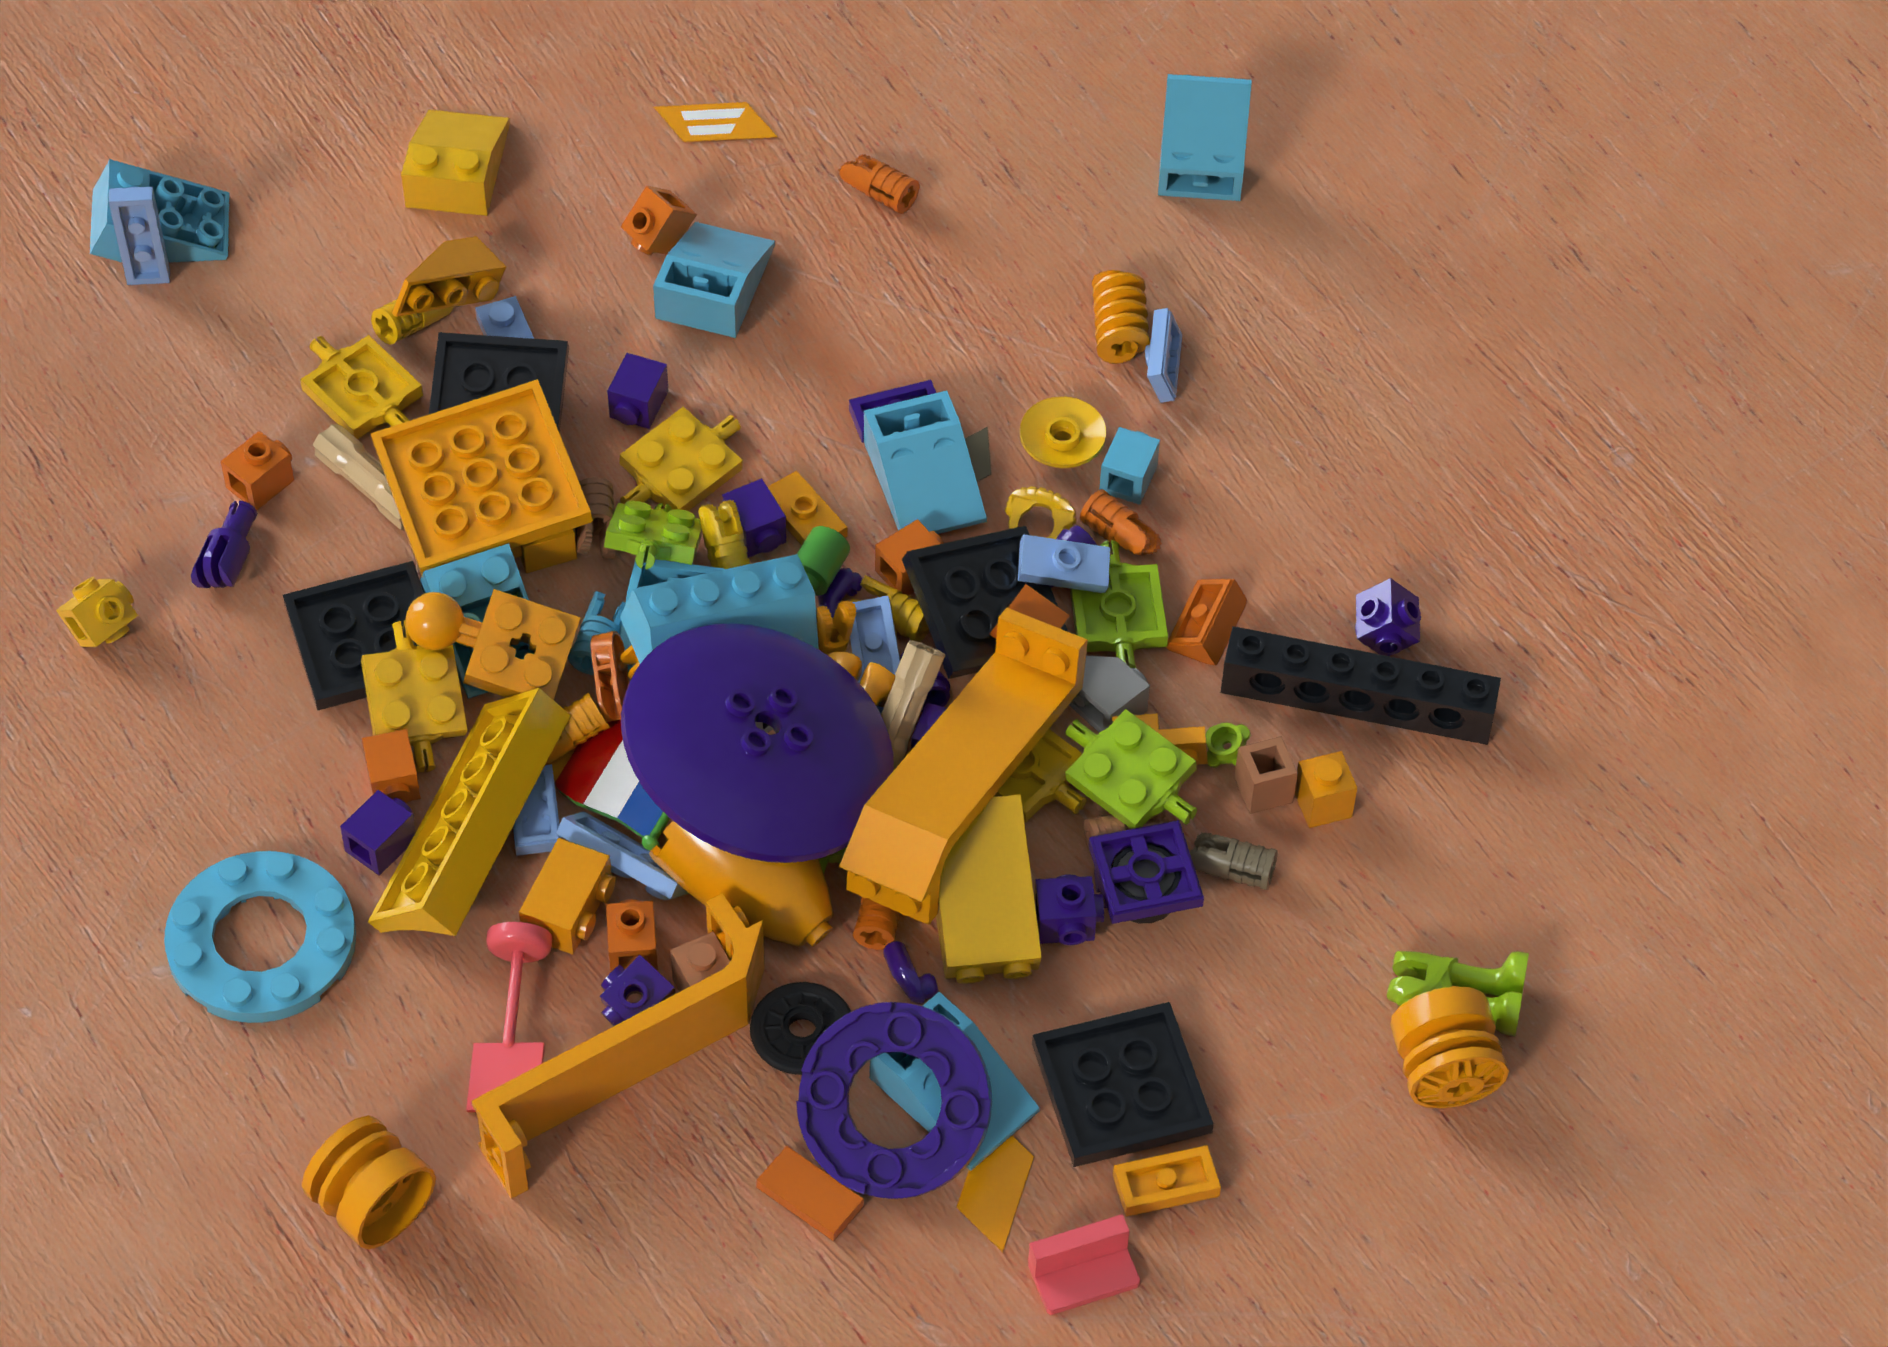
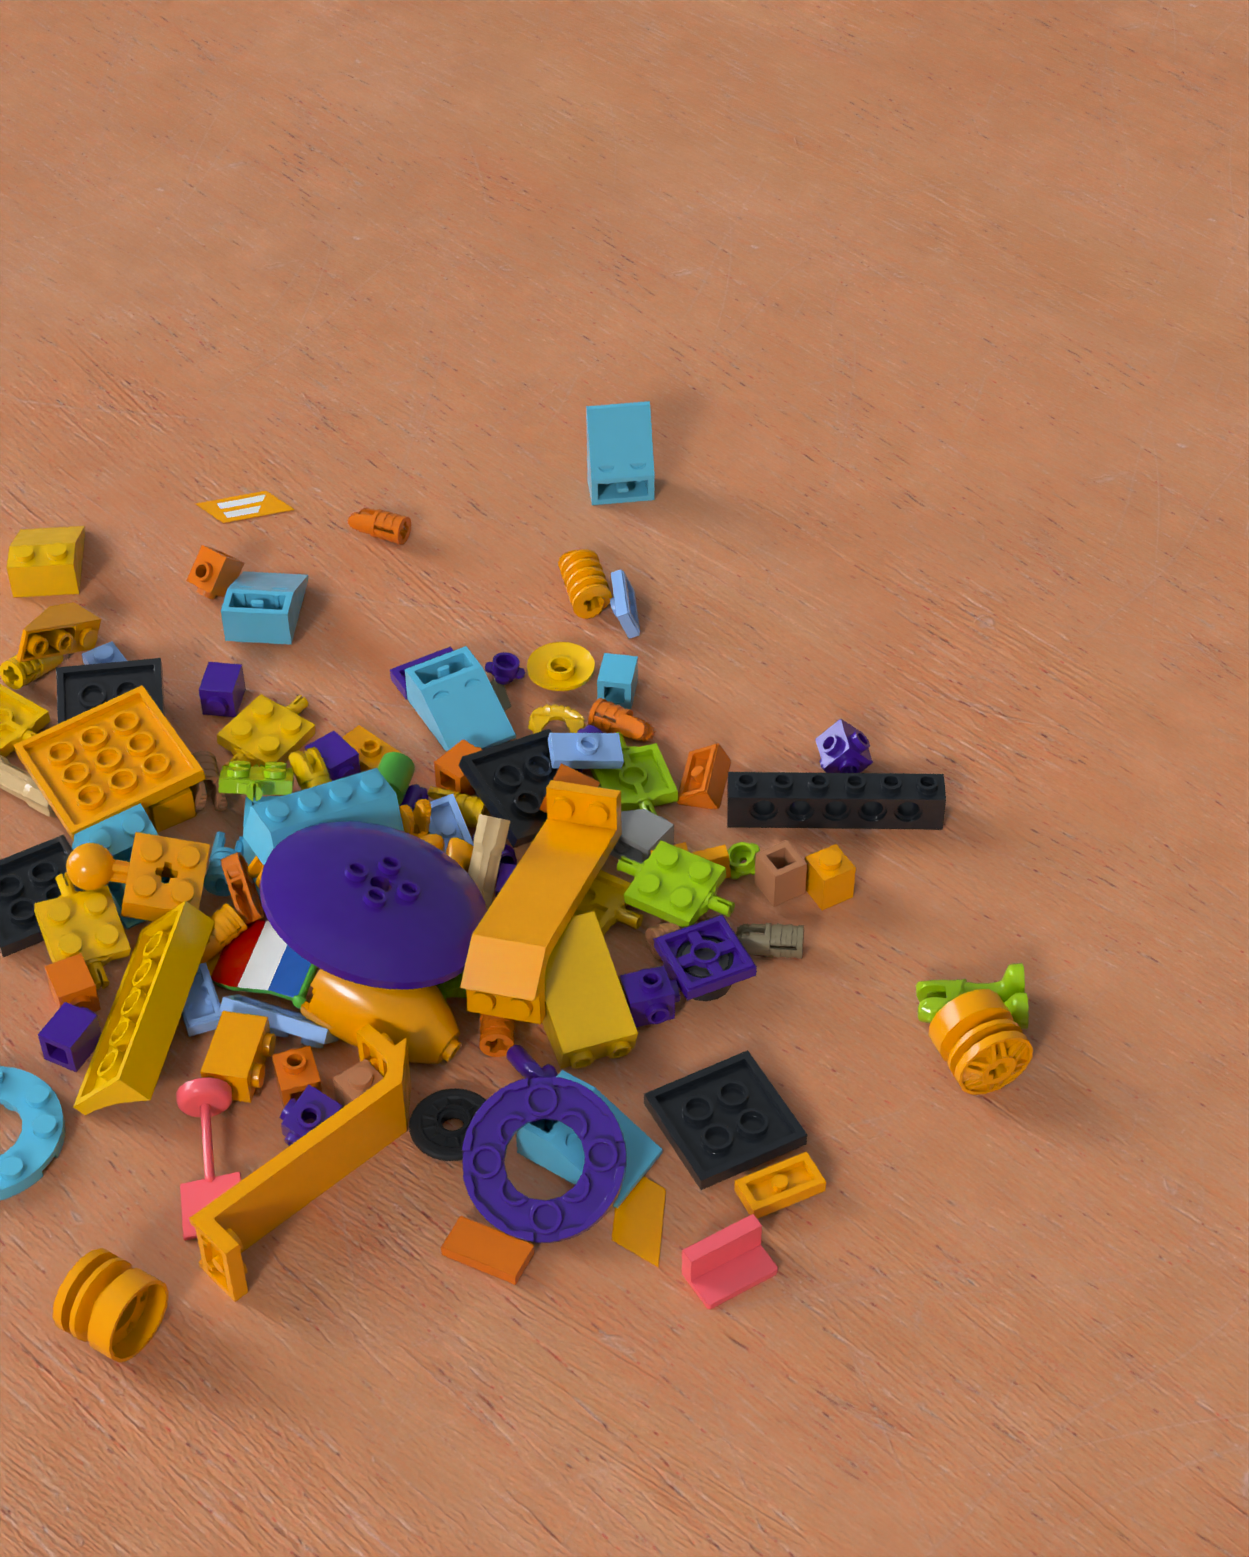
camera: 10 degrees left, 10 degrees down
(993, 421) = (505, 668): none -> dark purple plate

